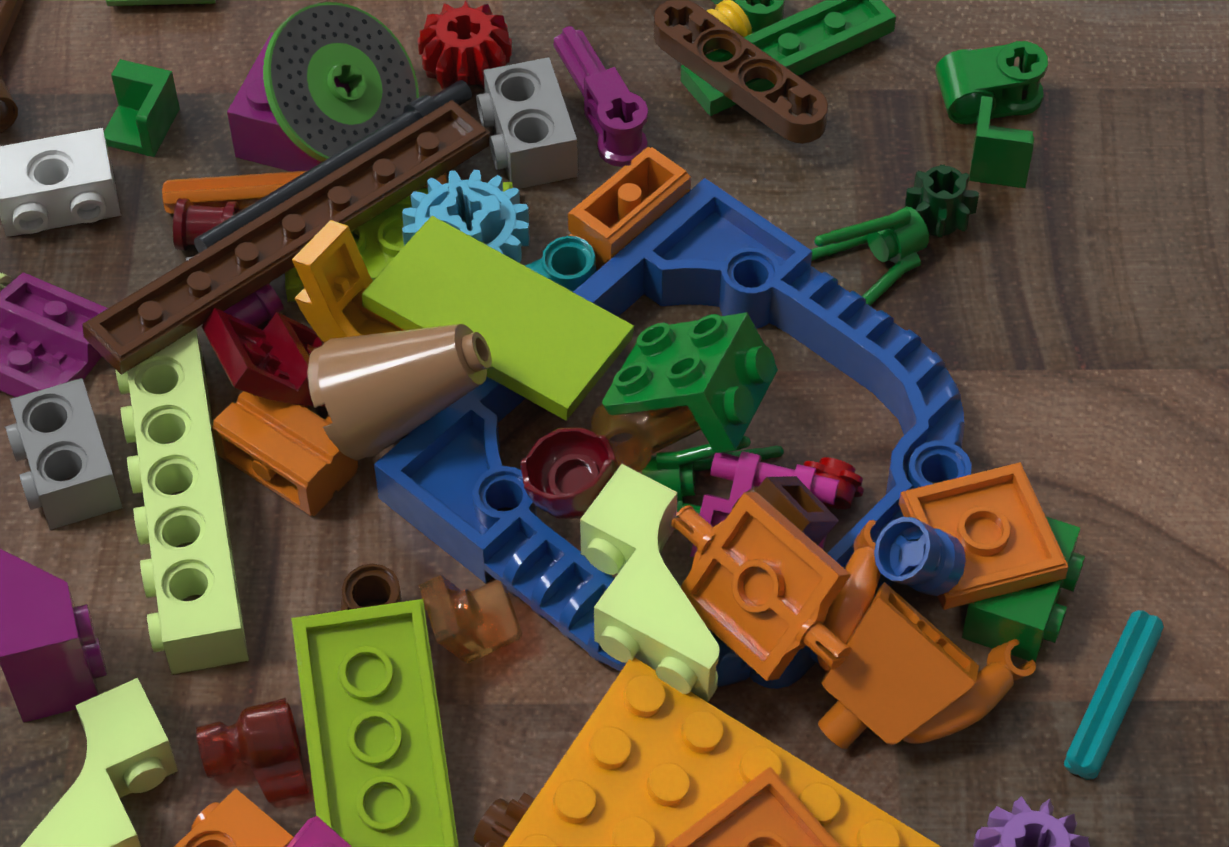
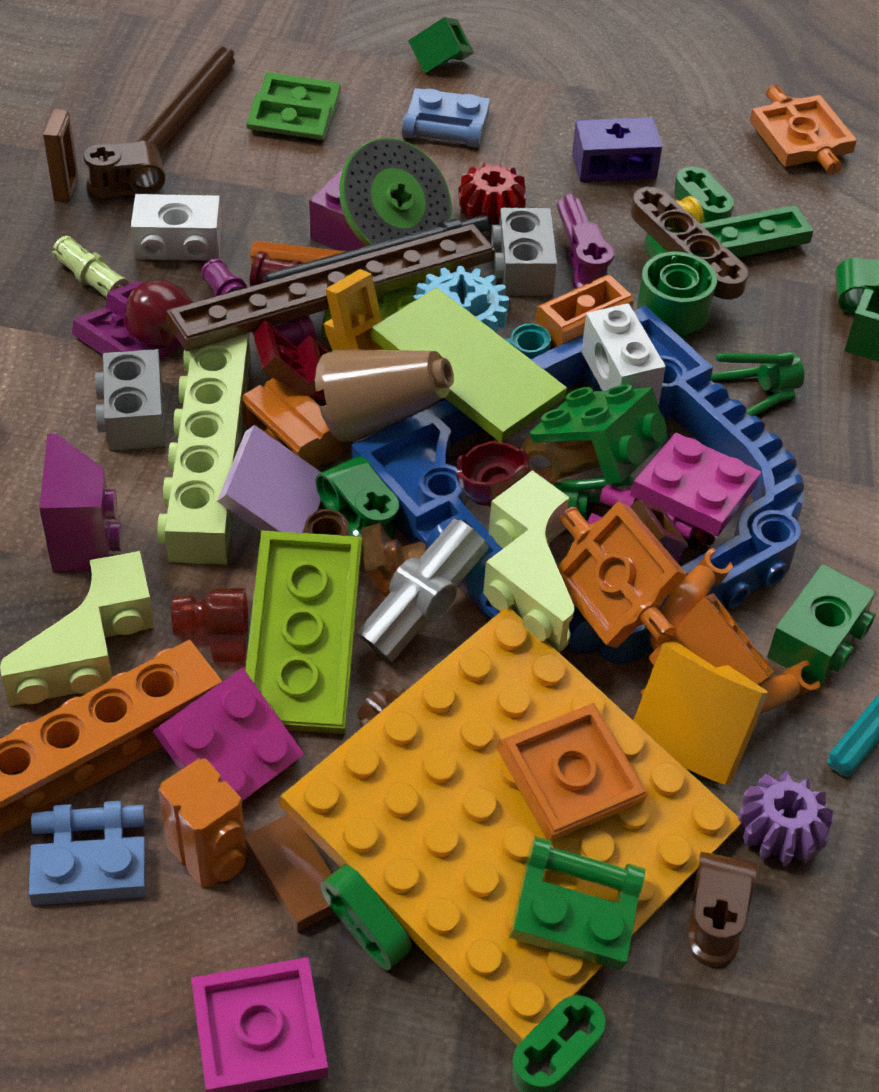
camera: 10 degrees right, 5 degrees down
(54, 319) = (148, 308): none -> dark red hair
(135, 249) = (221, 278): none -> magenta pin
(144, 109) = (255, 194): green panel -> none
(285, 546) = (270, 485): none -> lavender tile
(400, 534) = (358, 495): none -> green piece
(516, 651) = (423, 589): none -> light grey piece
(695, 264) = (621, 350): none -> white brick
(742, 147) = (678, 290): none -> green piece
(828, 429) = (696, 483): none -> dark pink plate
(899, 744) = (700, 712): none -> light orange slope
(919, 556) = (744, 578): blue wheel -> none
(942, 199) = (821, 355): dark green gear -> none
(999, 527) = (798, 580): orange tile -> none

